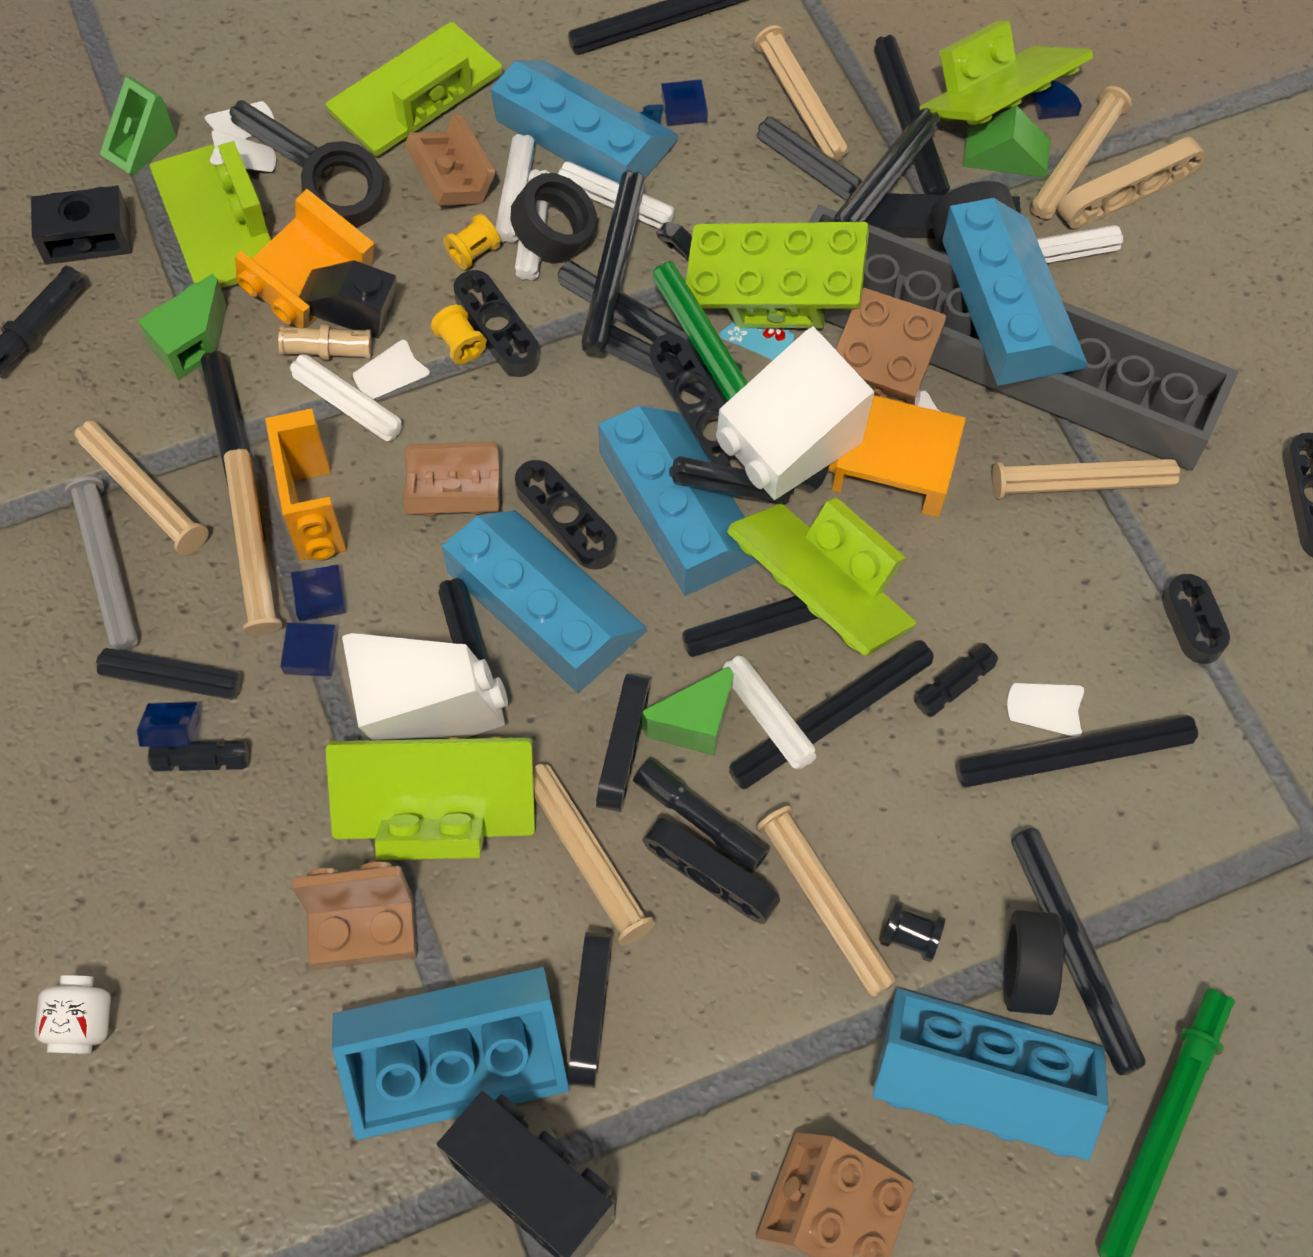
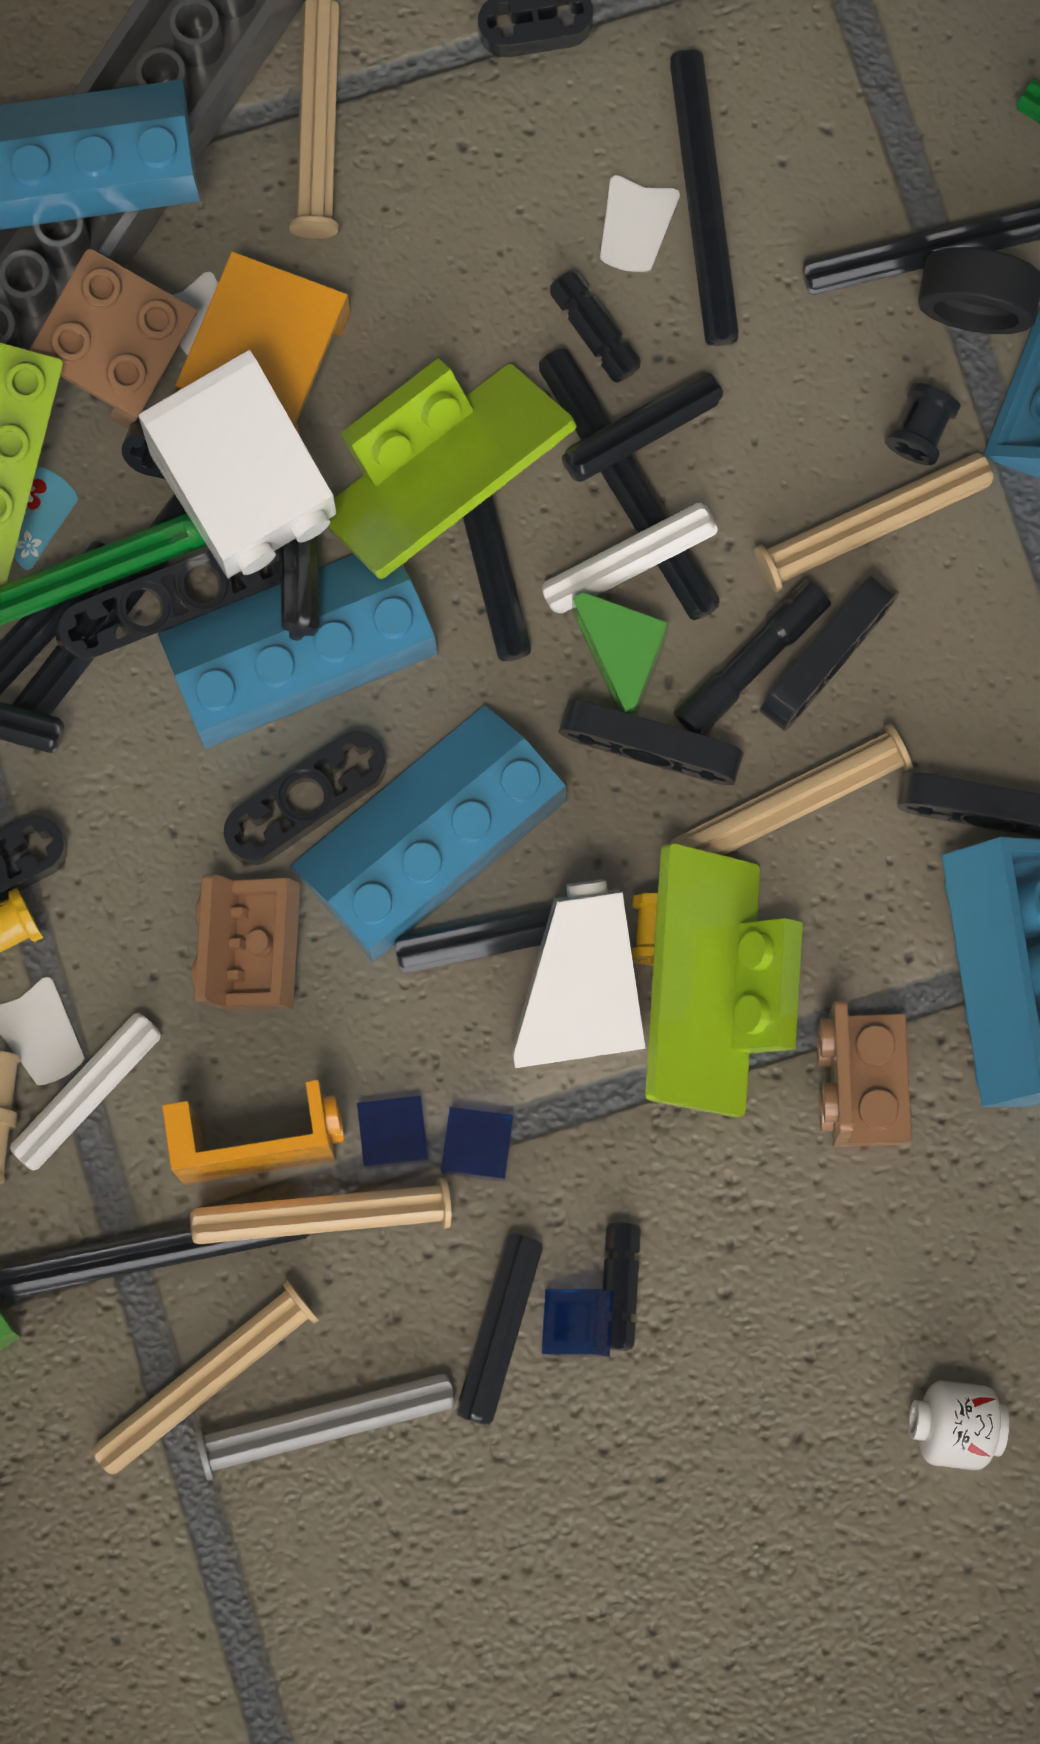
camera: 80 degrees left, 15 degrees up
(877, 713) = (642, 426): none -> black axle

